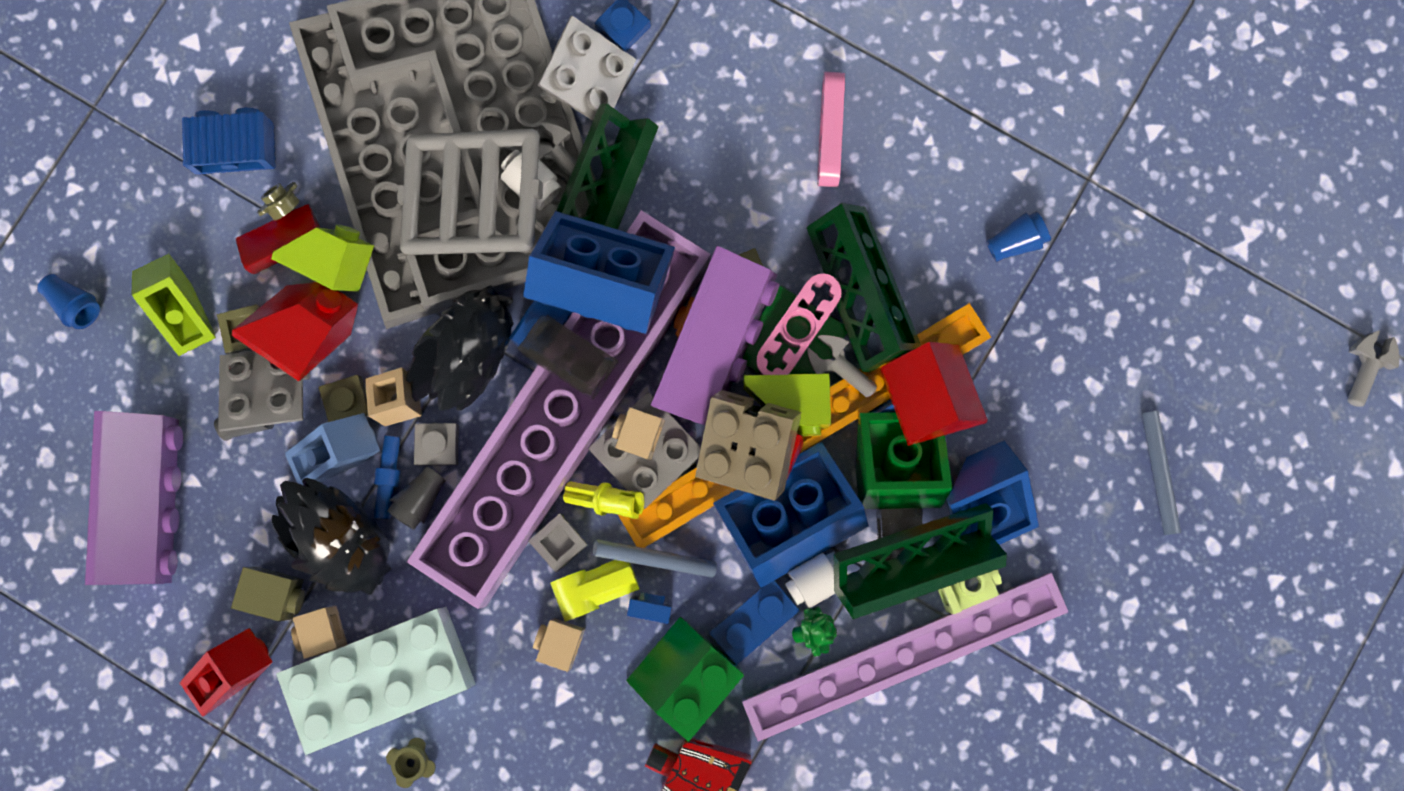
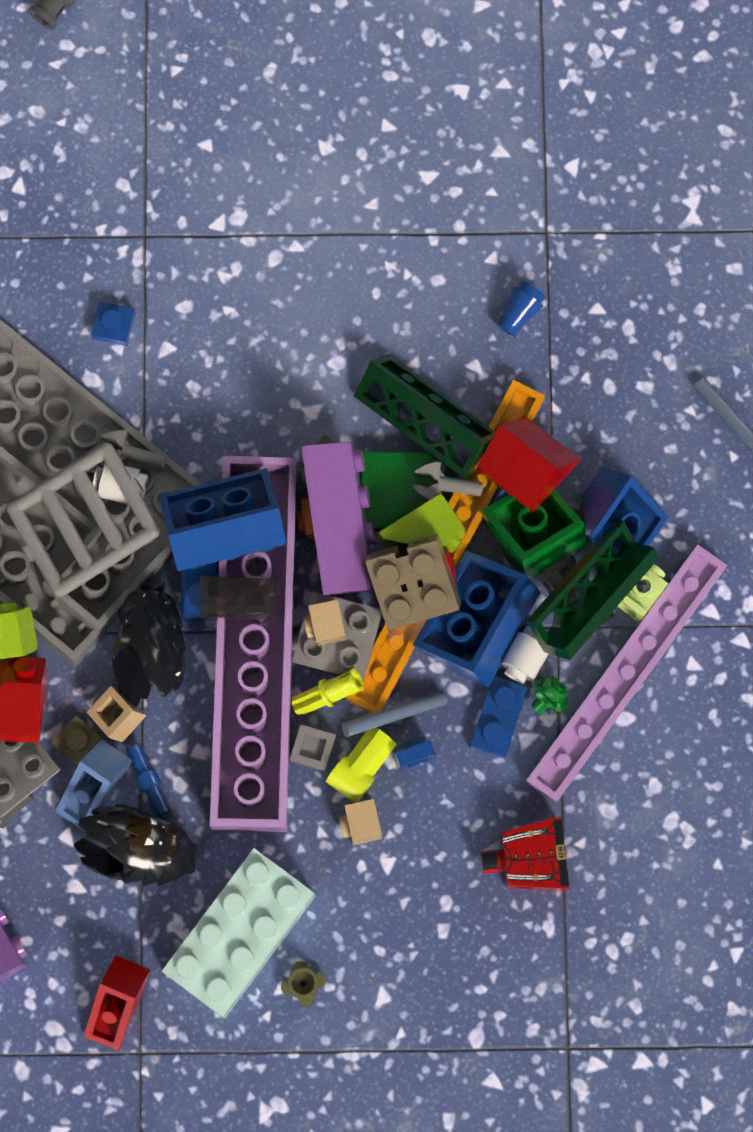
camera: 35 degrees left, 5 degrees down
(268, 594) = (114, 921): olive brick -> none
(318, 632) = (169, 927): tan plate -> none
(417, 498) = (182, 782): dark grey cone -> none
(436, 444) = (170, 732): light grey plate -> none
(585, 70) = (110, 377): light grey hinge -> none
(620, 167) = (185, 435): dark green fence -> none
(685, 678) = (472, 789): green slope -> none
(807, 296) = (387, 446): bright pink beam -> none
(831, 129) = (326, 310): bright pink beam -> none

